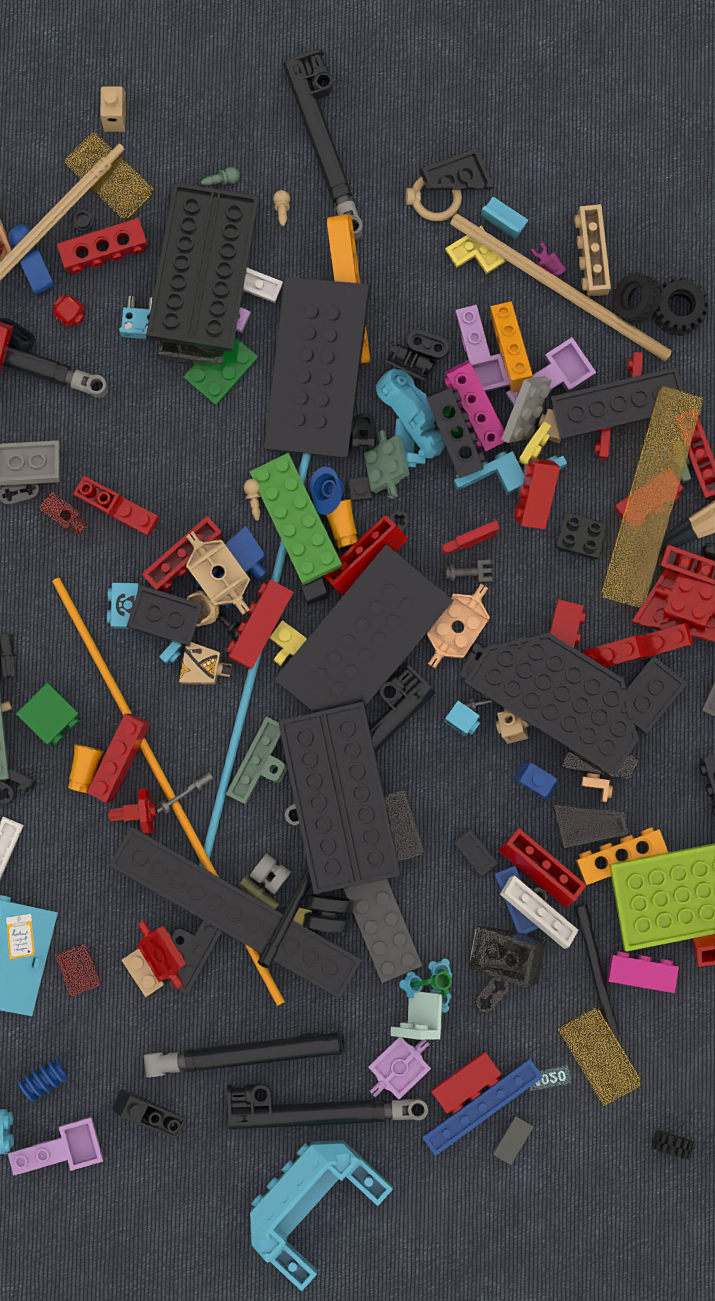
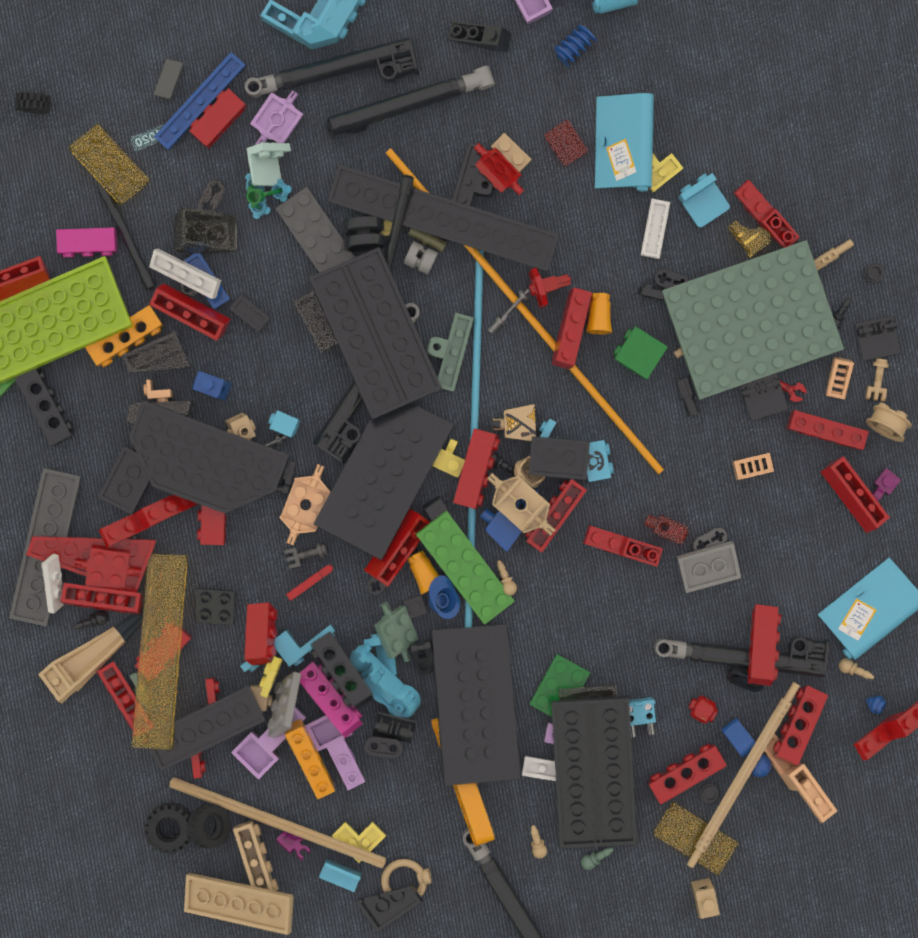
camera: 170 degrees right, 5 degrees up
(620, 207) = (238, 903): none -> tan plate

